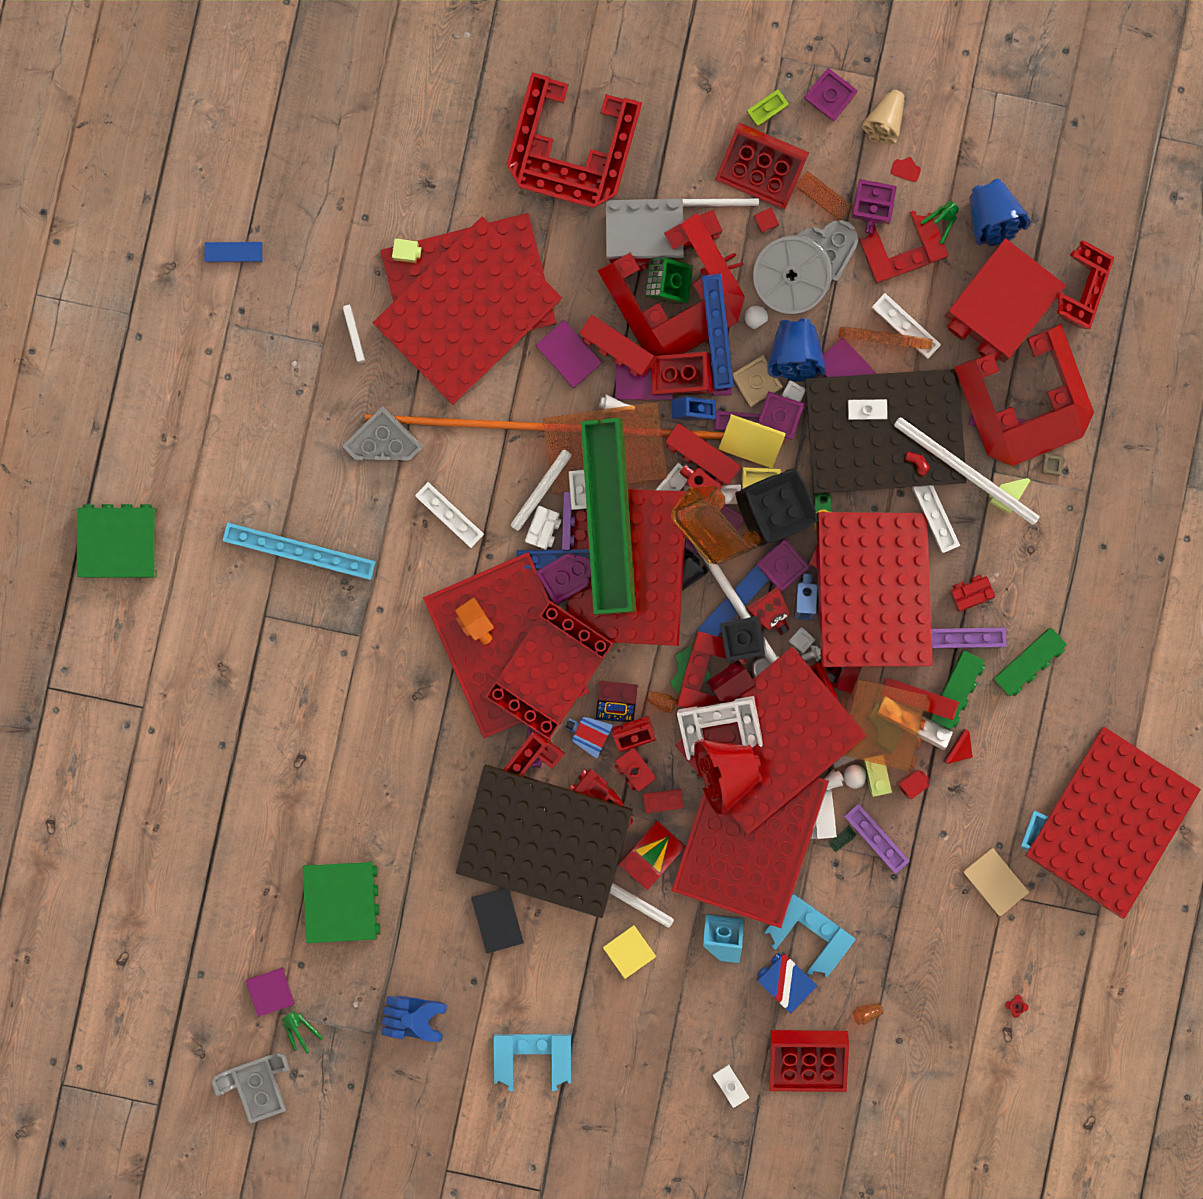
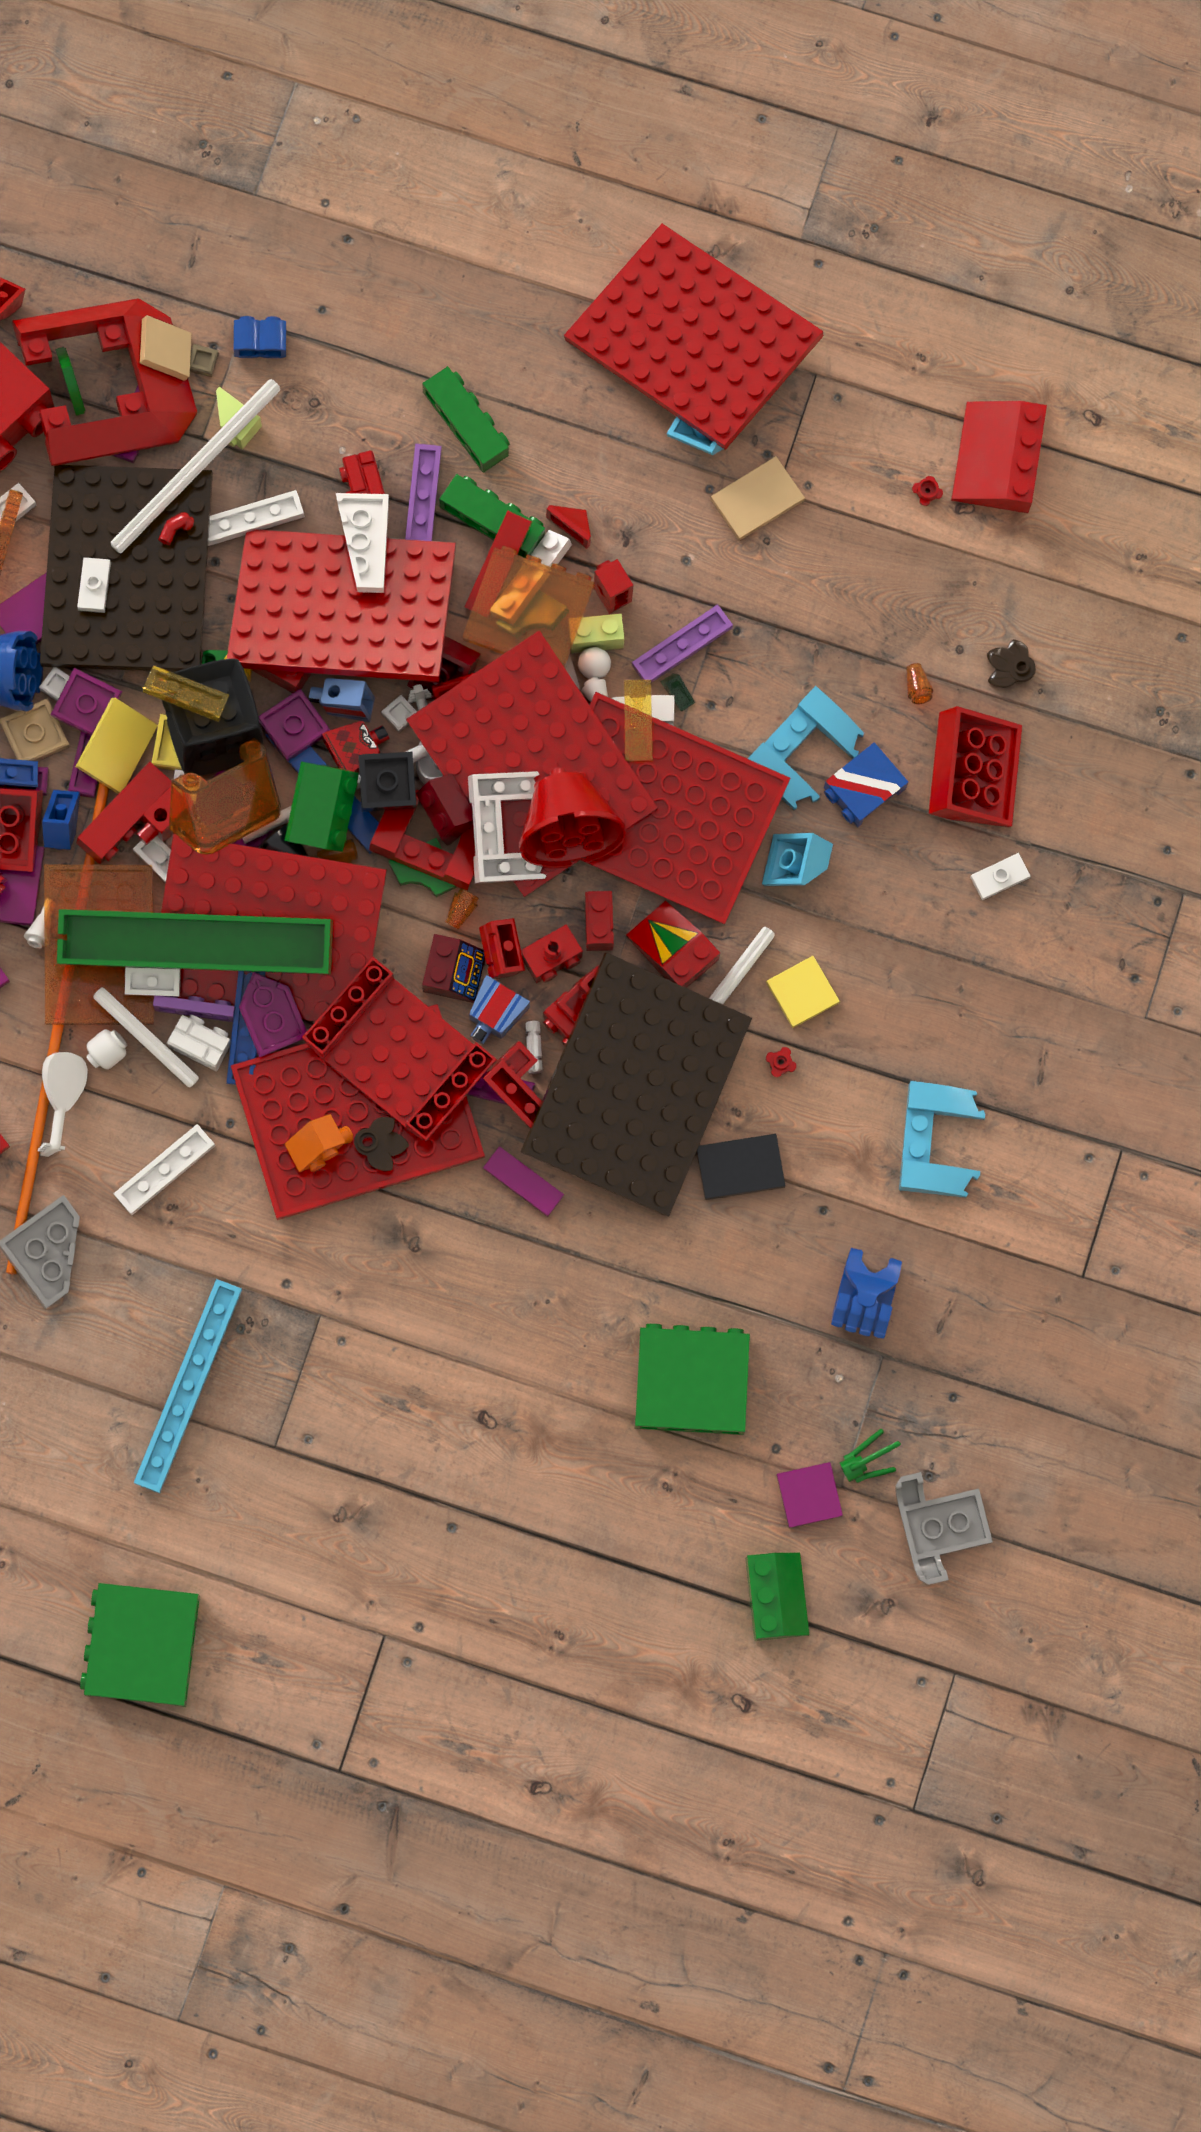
camera: 90 degrees left, 10 degrees down
(196, 976) = (777, 1596): none -> green slope
(469, 767) = (523, 1181): none -> magenta tile
(482, 667) = (385, 1143): none -> dark brown plate
(503, 436) = (64, 1081): none -> white piece
(530, 463) = (106, 1049): none -> white head
(569, 764) = (534, 1045): none -> white axle
(576, 936) = (779, 1069): none -> red plate
(692, 609) = (348, 855): none -> clear orange cone
(719, 594) = (322, 806): none -> green slope
(784, 487) = (185, 693): none -> clear yellow plate
(809, 814) = (638, 720): none -> clear yellow plate
(891, 1076) = (1007, 663): none -> dark brown plate
(929, 600) = (365, 532): none -> white wing
(1024, 370) = (70, 380): none -> green tile
(1050, 1056) = (999, 454): none -> red slope
(1055, 437) = (165, 348): none -> tan tile
(1074, 504) = (259, 337): none -> blue brick

